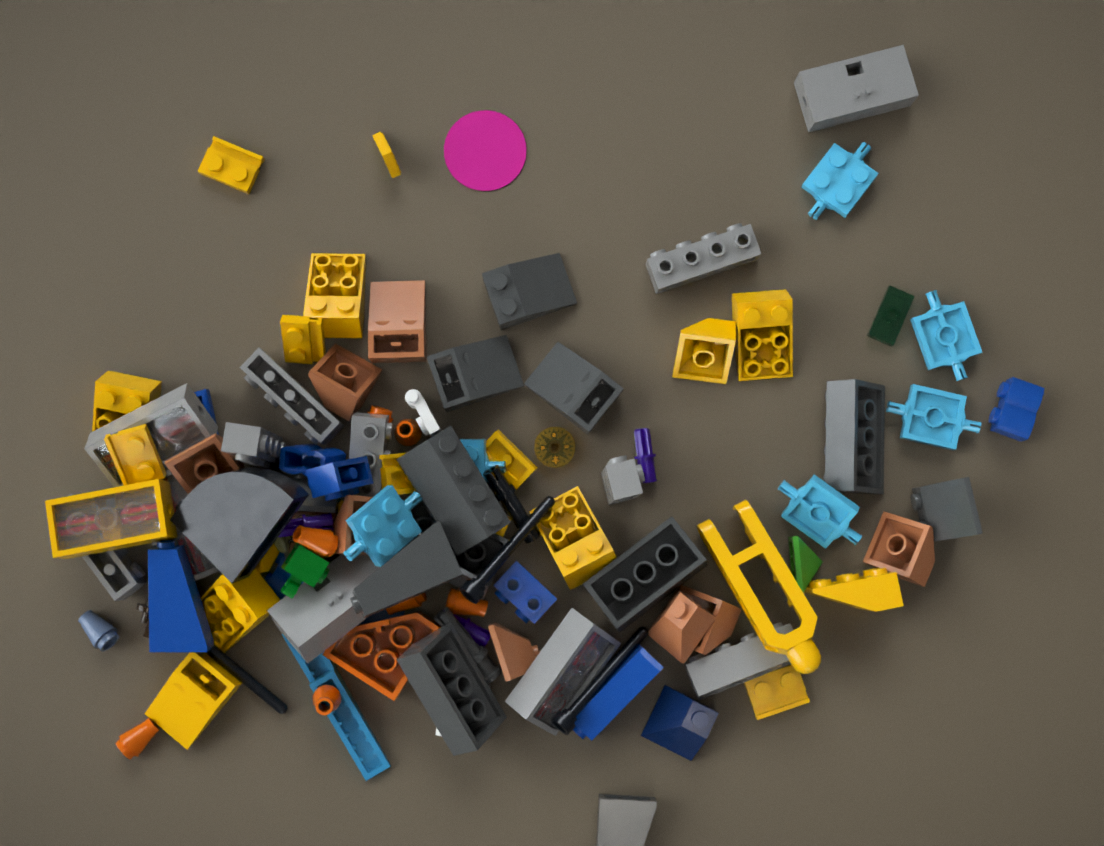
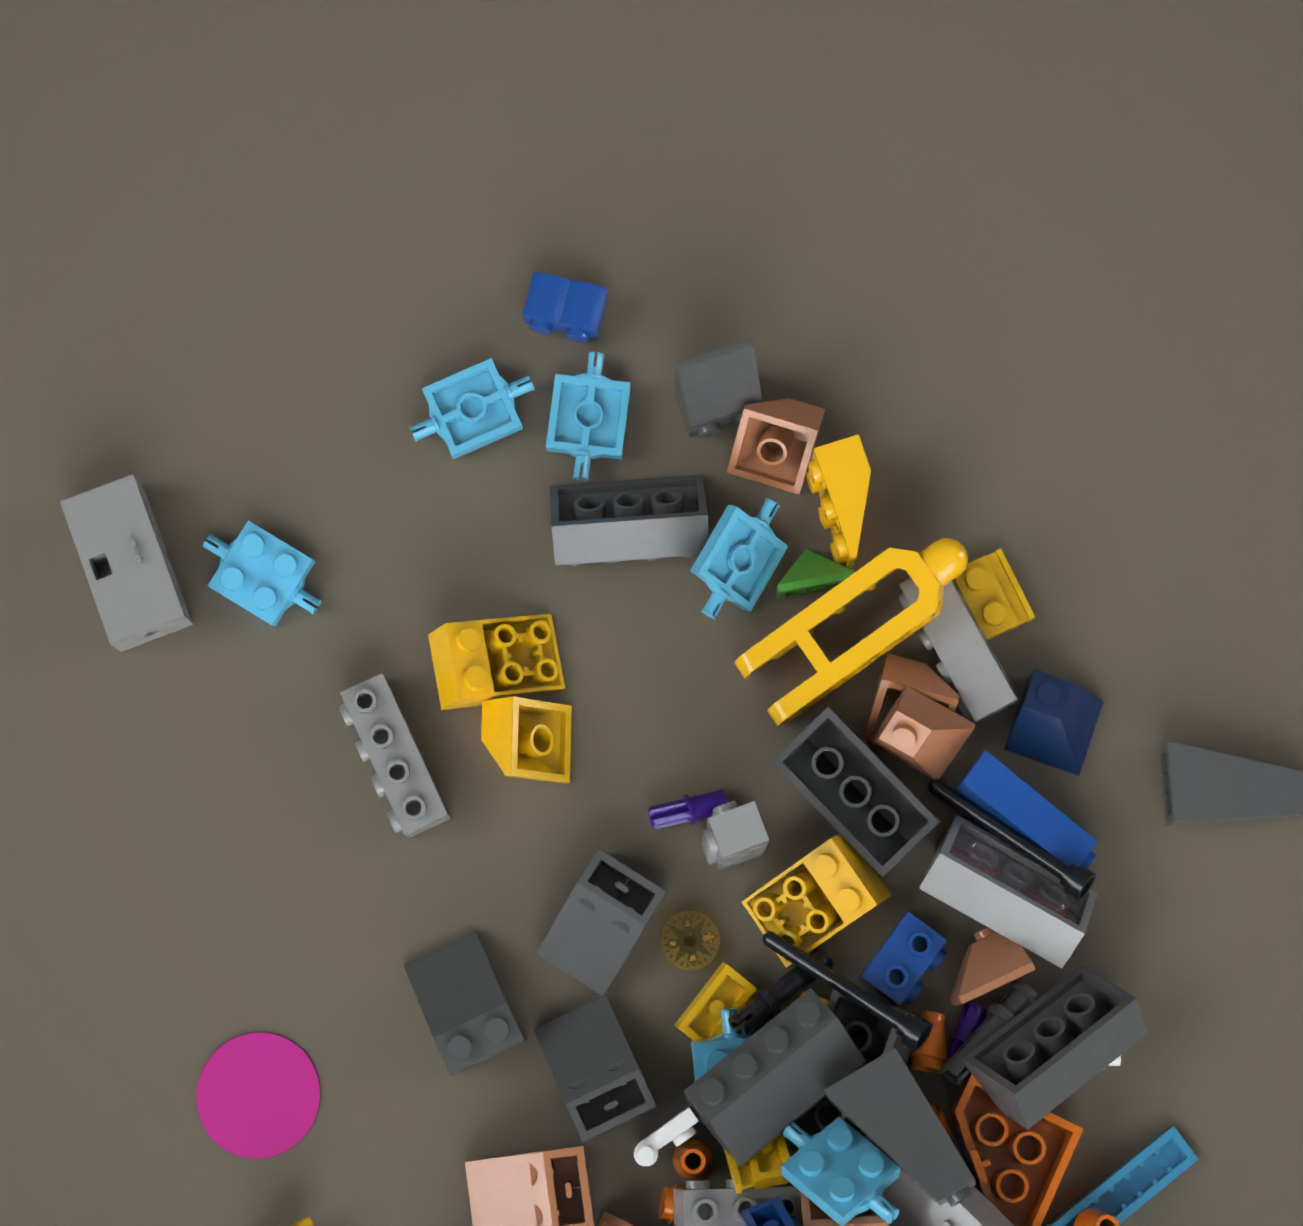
camera: 90 degrees left, 5 degrees down
(890, 316) = (450, 486): clear green plate -> none

